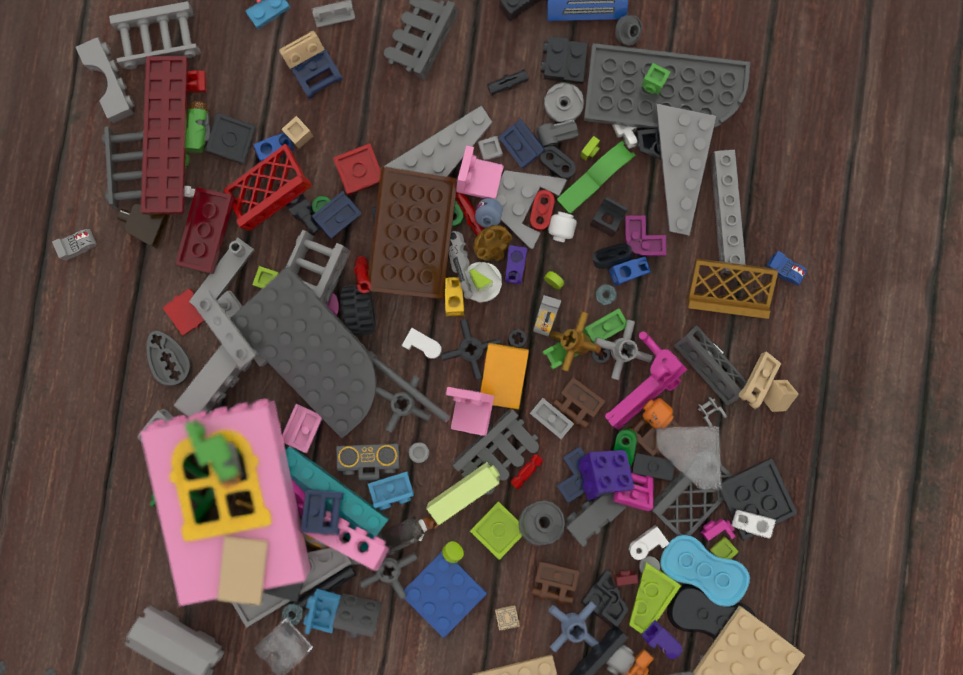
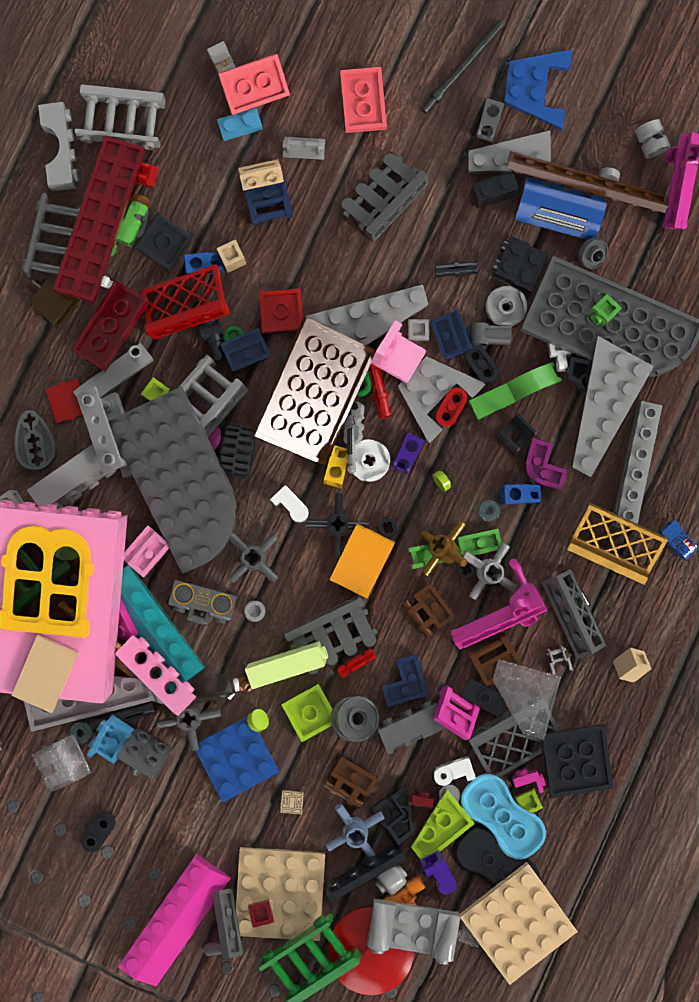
camera: 15 degrees right, 0 degrees up
(215, 450) = (56, 549): bright green plate -> none
(288, 591) = (82, 708): black tile -> none
(315, 512) = (134, 637): dark blue plate -> none
(361, 271) = (252, 415): red pin -> none
(391, 490) = (215, 639): dark azure bracket -> none
(408, 388) = (263, 544): dark grey bar -> none
(471, 411) = (319, 585): bright pink bracket -> none
(480, 281) = (367, 460): lime slope -> none
(488, 212) = (397, 394): sand blue head -> none
(492, 243) = (391, 425): pearl gold dish -> none
(546, 315) = (423, 513): light grey leg -> none
(551, 418) = (397, 617): light grey plate -> none
(562, 226) = (466, 429): white head -> none
(590, 149) = (518, 361): lime plate -> none
(605, 473) = (433, 688): dark purple bracket -> none
(612, 256) = (507, 474): black plate -> none
(629, 447) = (461, 671): green plate -> none
(658, 413) = (504, 645): orange head -> none
(753, 523) = (566, 784): white leg -> none
(760, 379) = (617, 643): tan plate -> none

